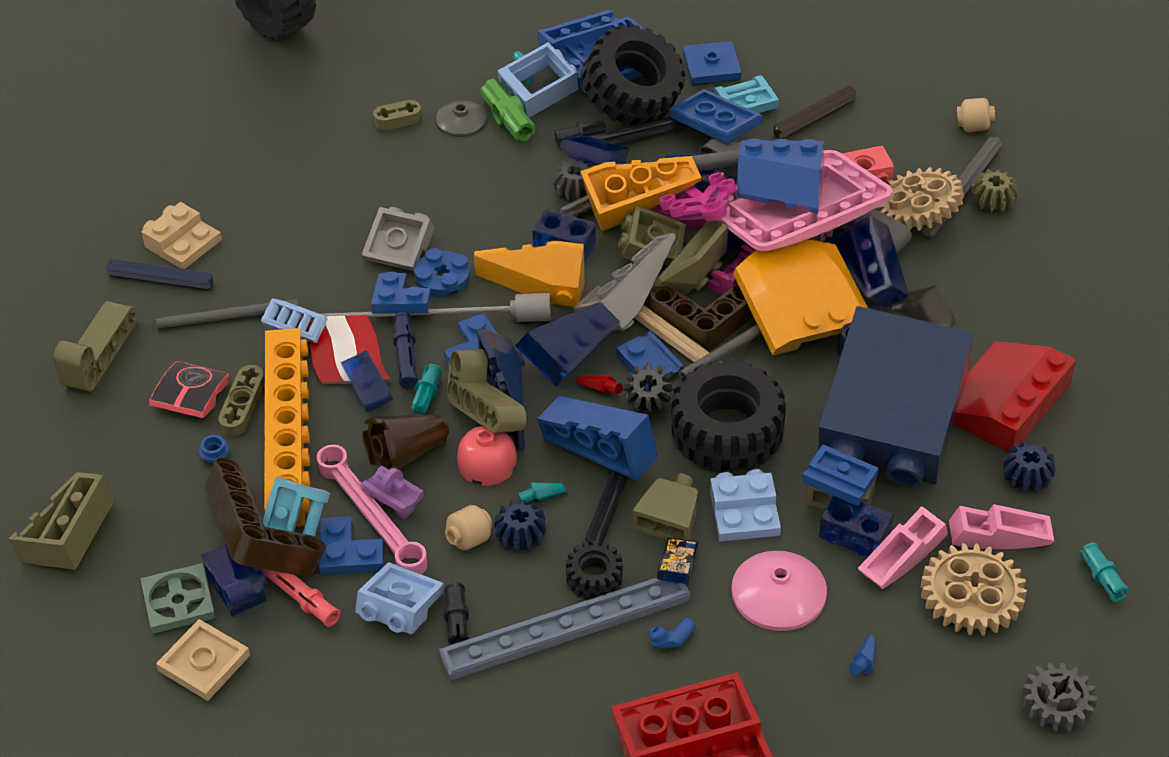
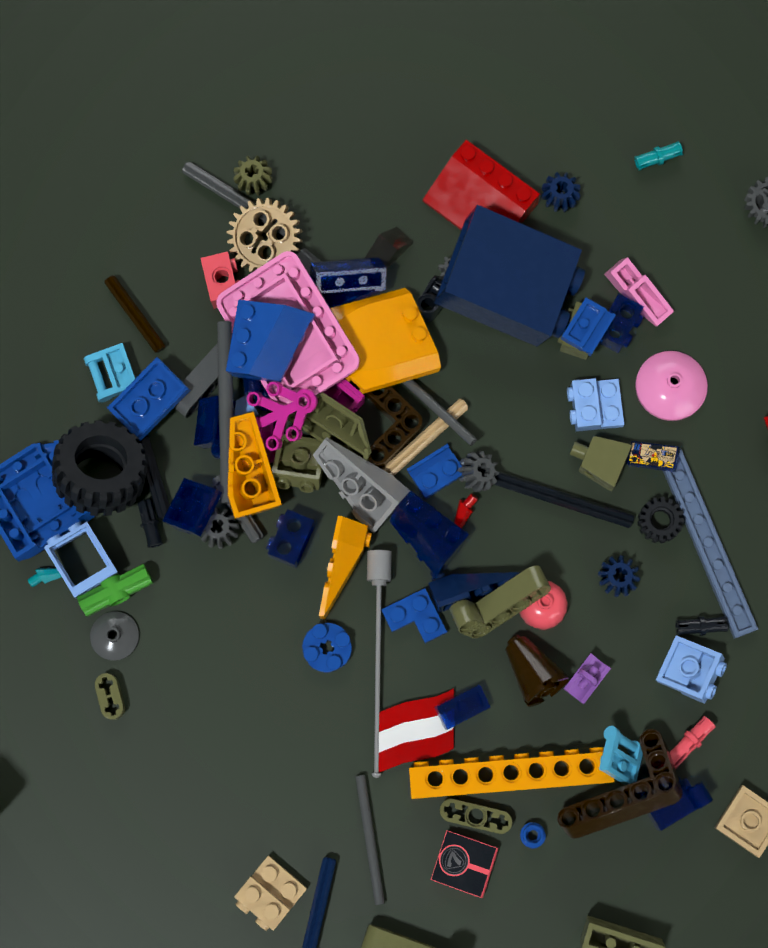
camera: 85 degrees left, 30 degrees up
(173, 579) = (700, 845): sand green piece -> none
(279, 311) = (394, 787): light blue slope -> none
(343, 553) = (642, 713): blue plate -> none
(370, 508) = (599, 696): bright pink piece -> none
(394, 297) = (362, 690): blue plate -> none
(398, 238) = (289, 686): light grey plate -> none
(404, 341) = (421, 676): dark blue pin -> none
(426, 388) = (469, 656): teal axle -> none
(468, 527) = (621, 617): tan head -> none
(542, 491) = (579, 560): teal bar -> none
(601, 434) = (536, 512): blue wedge -> none
(672, 639) = (720, 464): blue arm -> none
(712, 62) = (56, 400): blue plate -> none
(724, 443) = (518, 379): black tyre -> none
(864, 657) = (735, 329): blue bar -> none
(973, 589) = (697, 251): tan gear -> none
(975, 115) = (154, 177): tan head -> none
(1000, 528) = (619, 221): bright pink slope -> none

